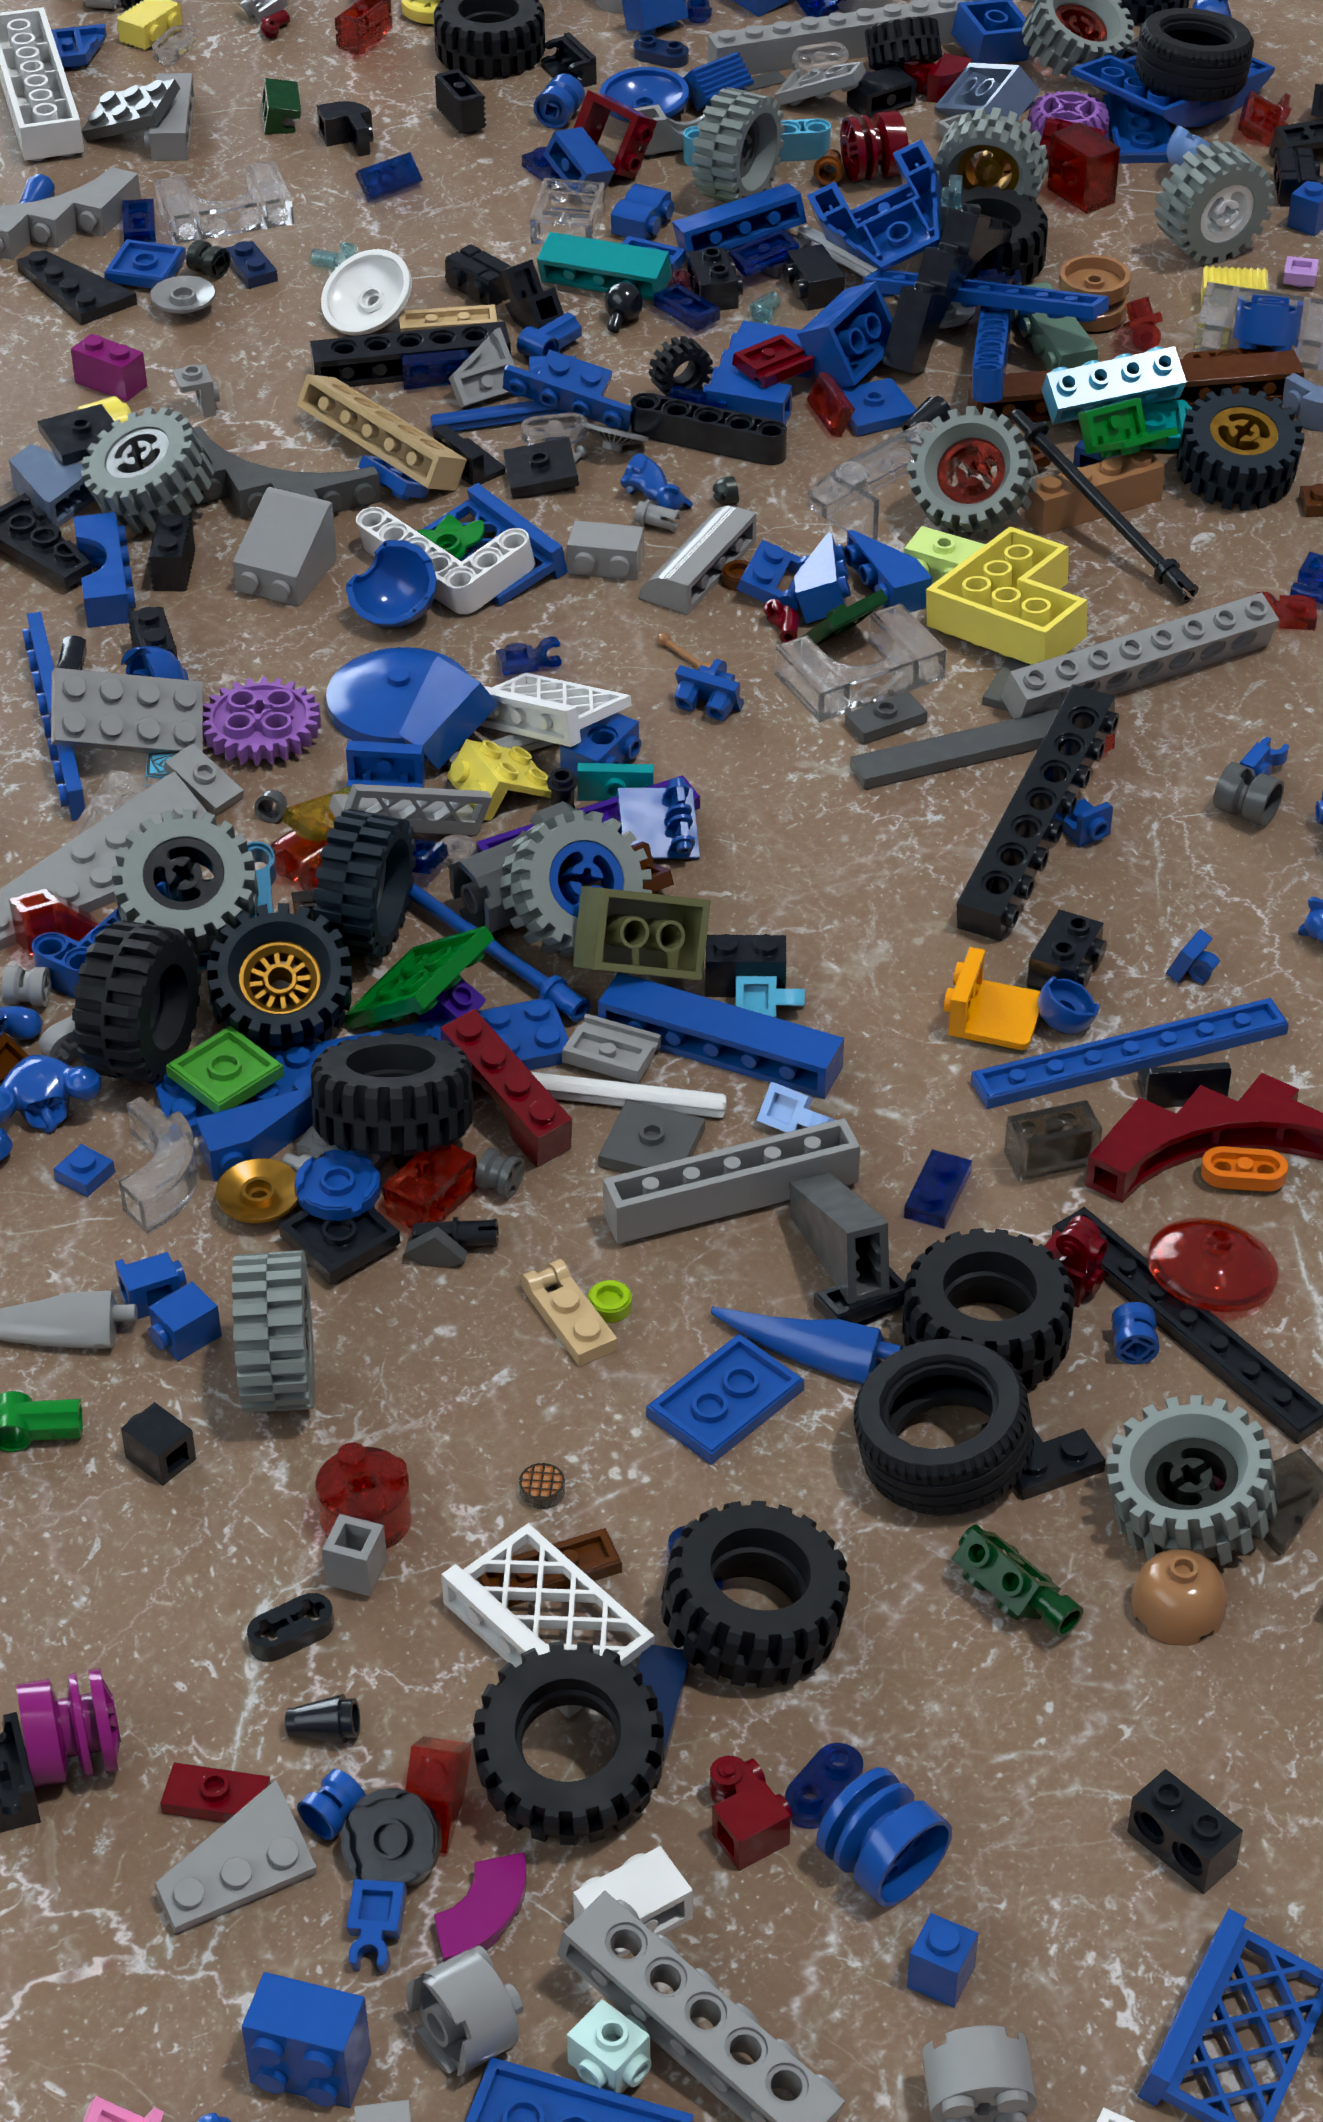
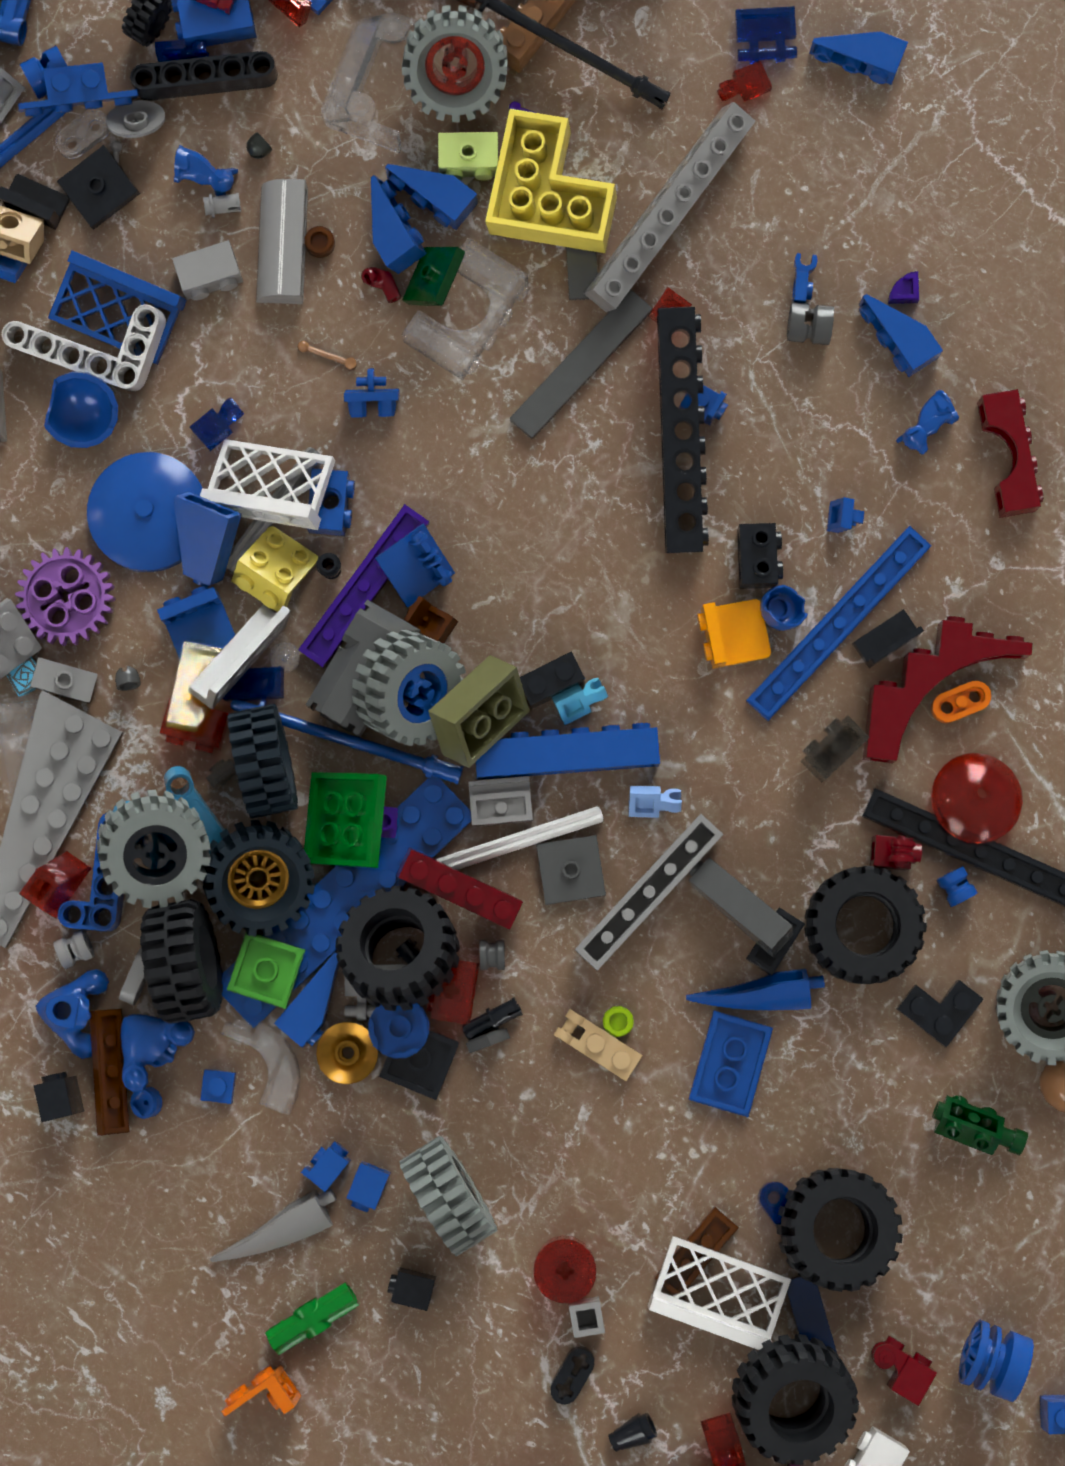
camera: 25 degrees left, 40 degrees up
(454, 536) = (80, 315): green plate -> none
(542, 1486) = (658, 1192): clear smoke tile -> none
(601, 780) = (359, 534): teal plate -> none
(766, 573) = (343, 237): blue plate -> none
(823, 1781) = (933, 1323): clear blue plate -> none
(885, 717) = (511, 356): dark grey plate -> none
(937, 1189) = (773, 816): clear blue plate -> none
(949, 1477) = (875, 1086): black tyre -> none

